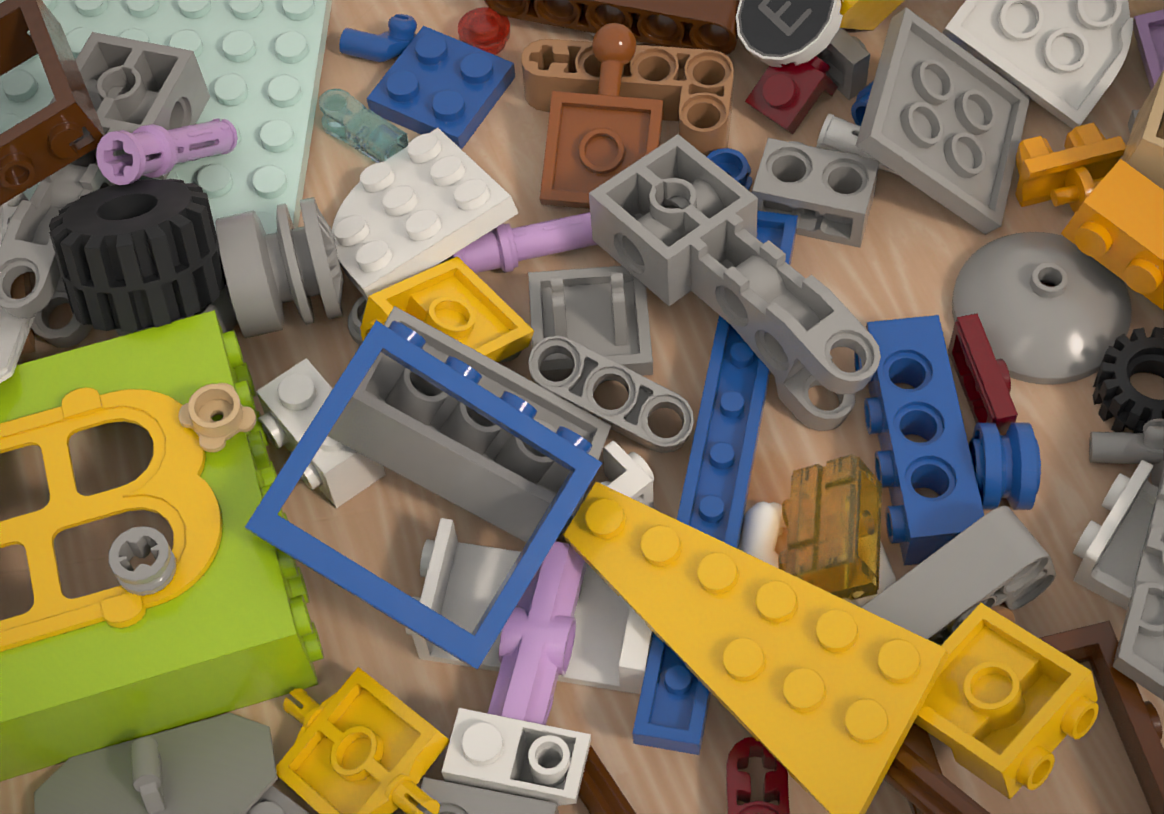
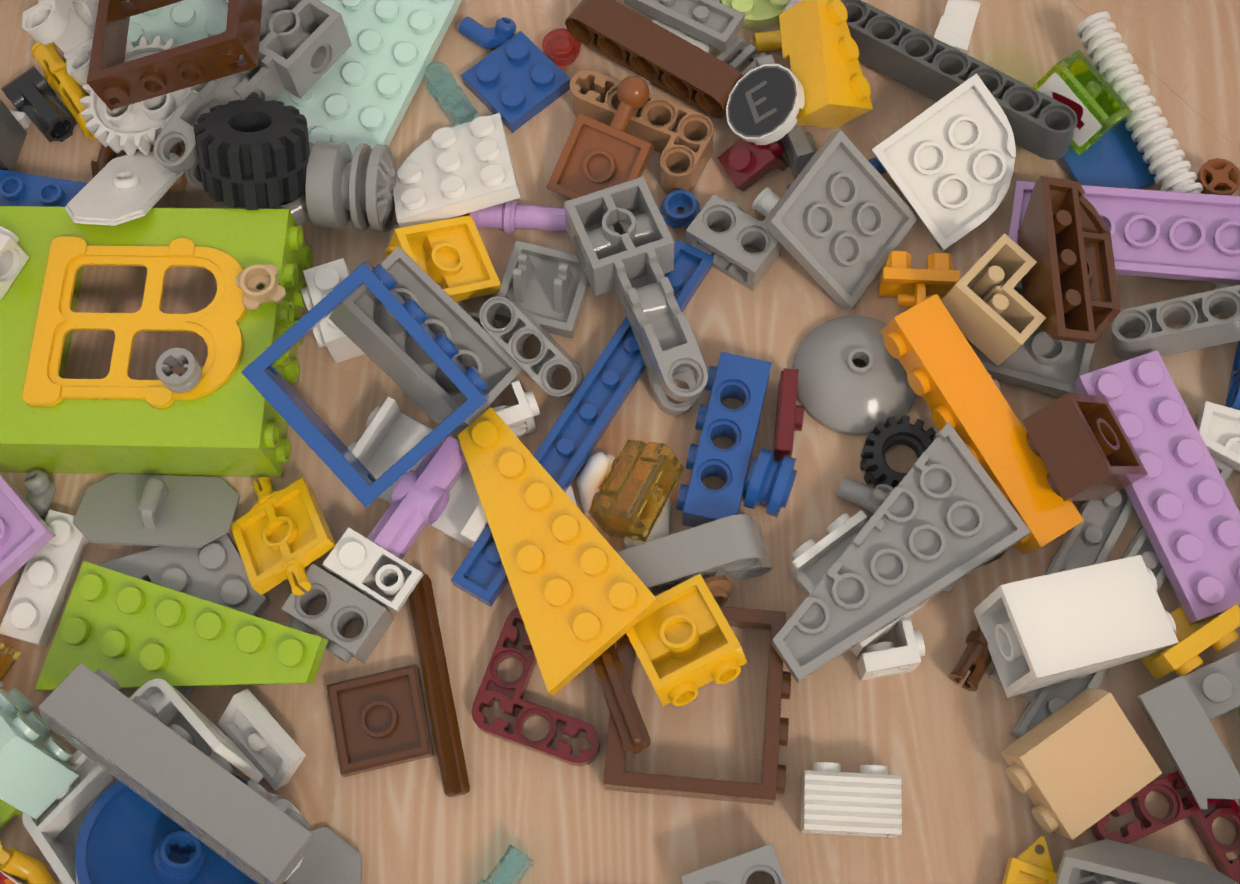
camera: 20 degrees right, 10 degrees up
(155, 150) = (289, 81): lavender pin -> none

